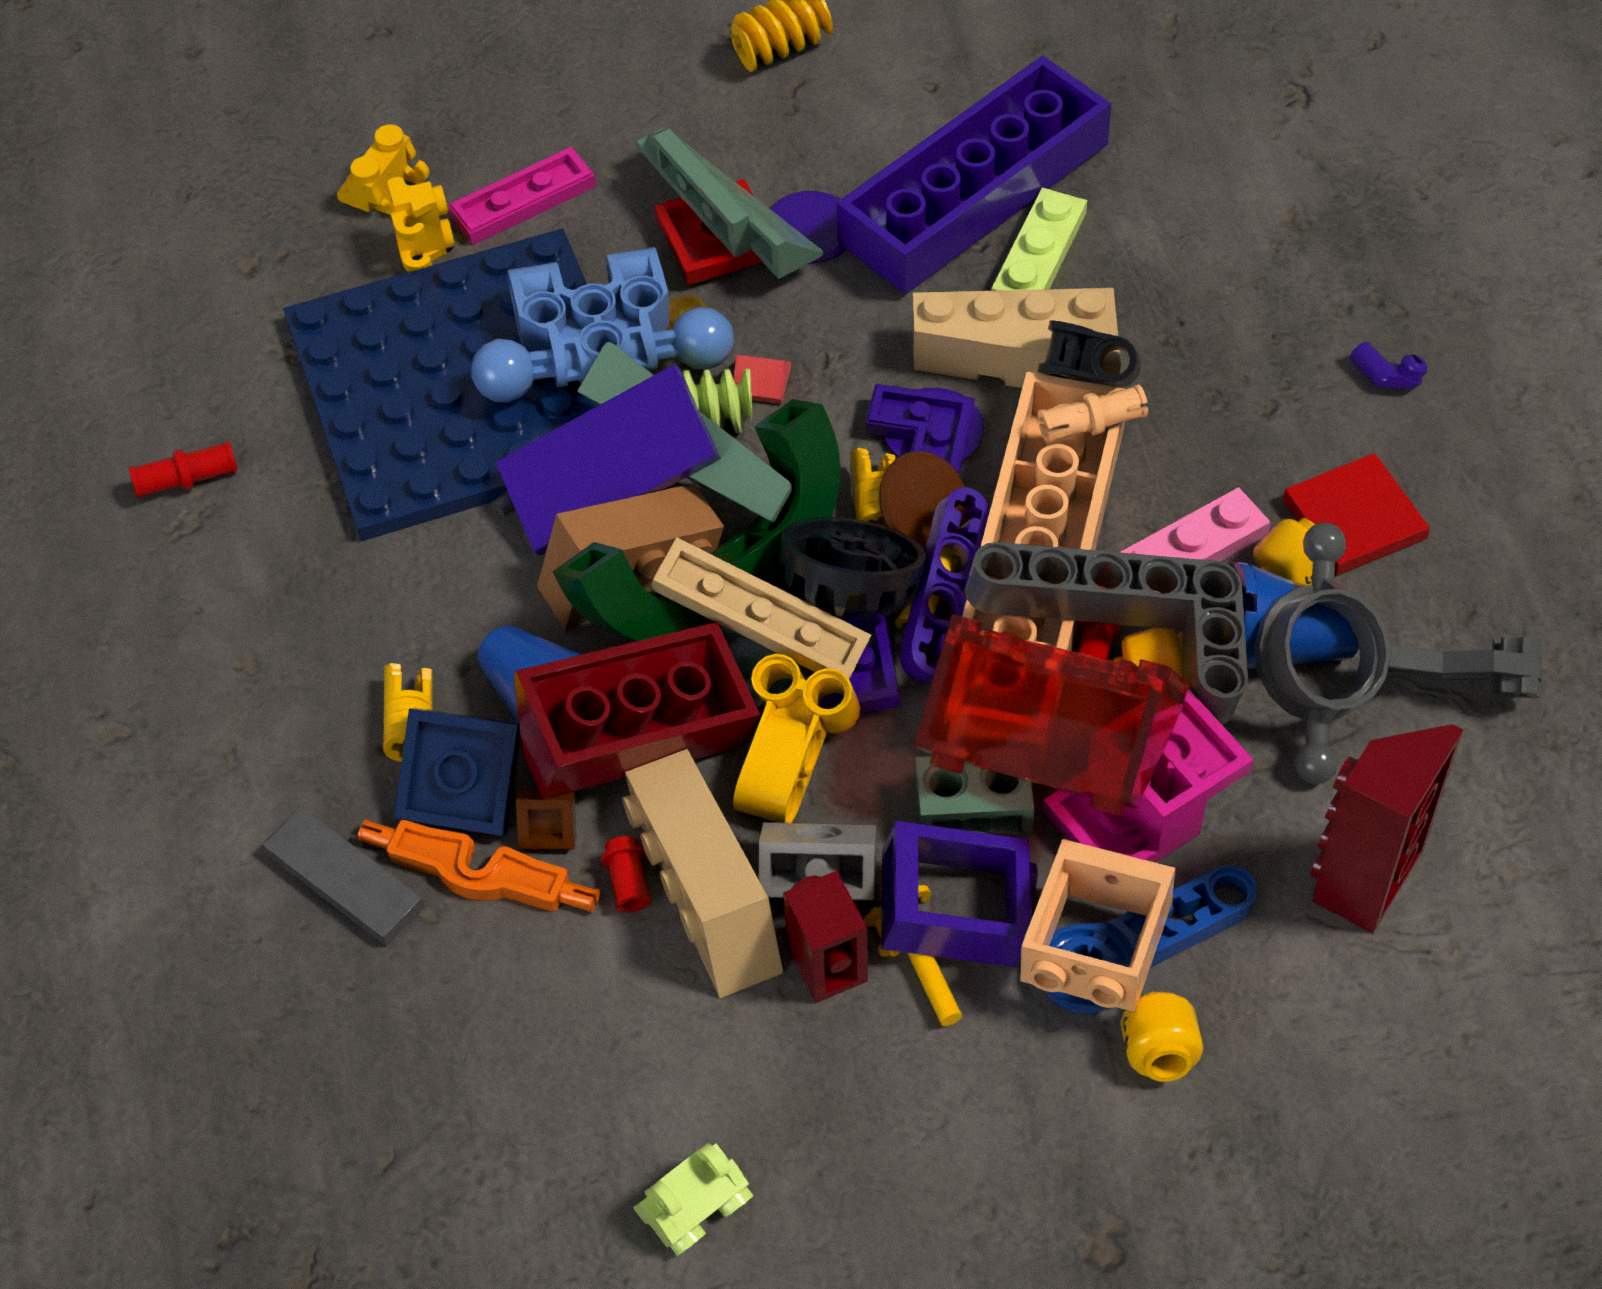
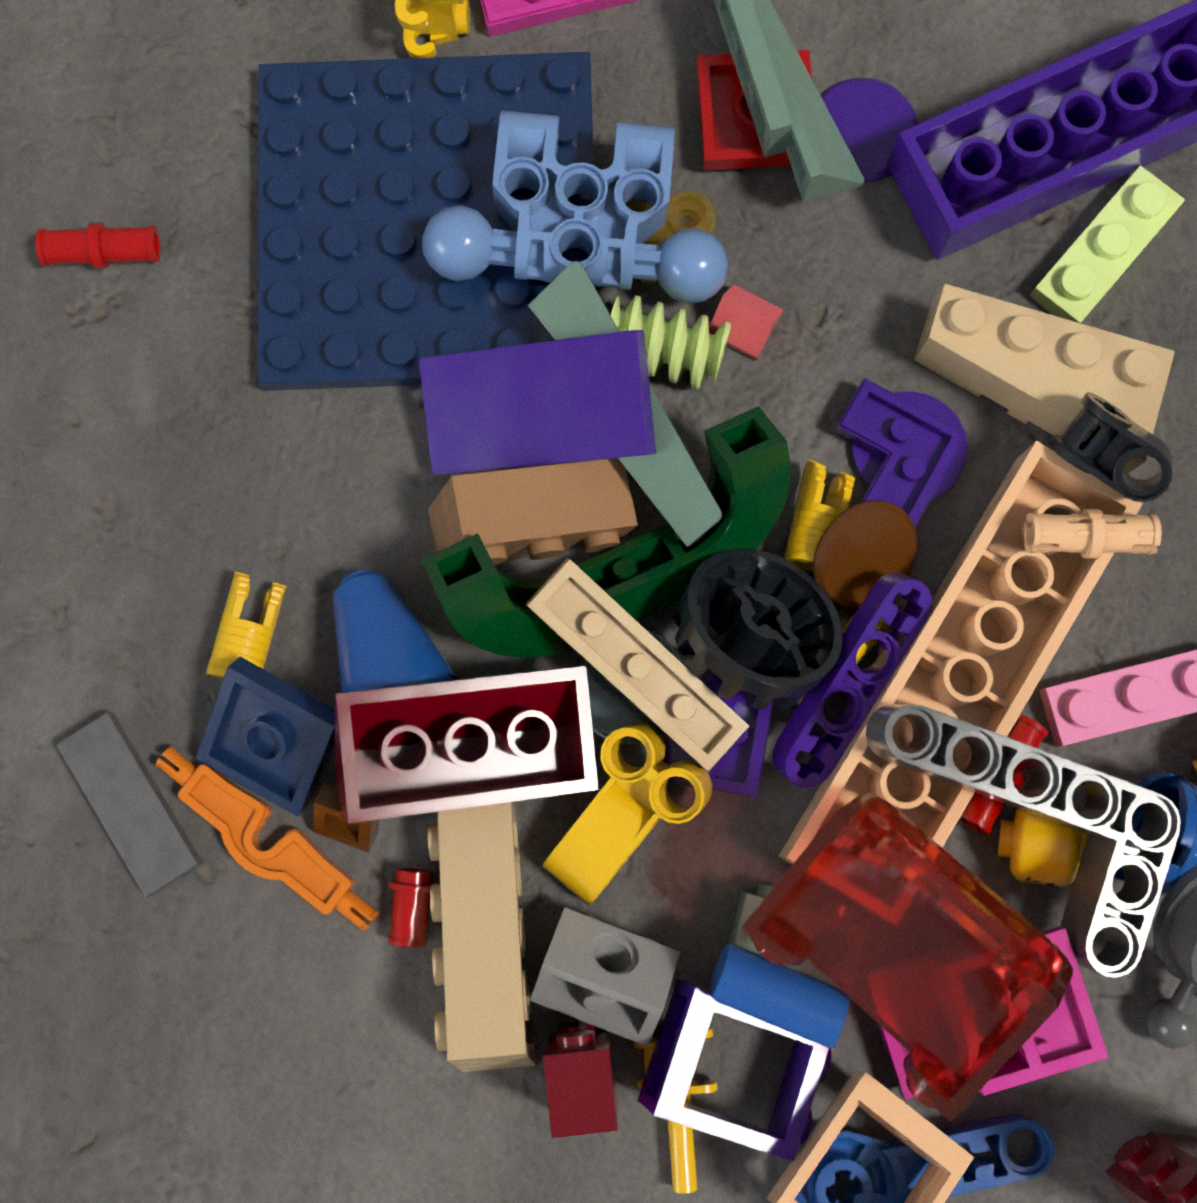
camera: 20 degrees right, 25 degrees up
(970, 806) = (779, 995): none -> blue brick

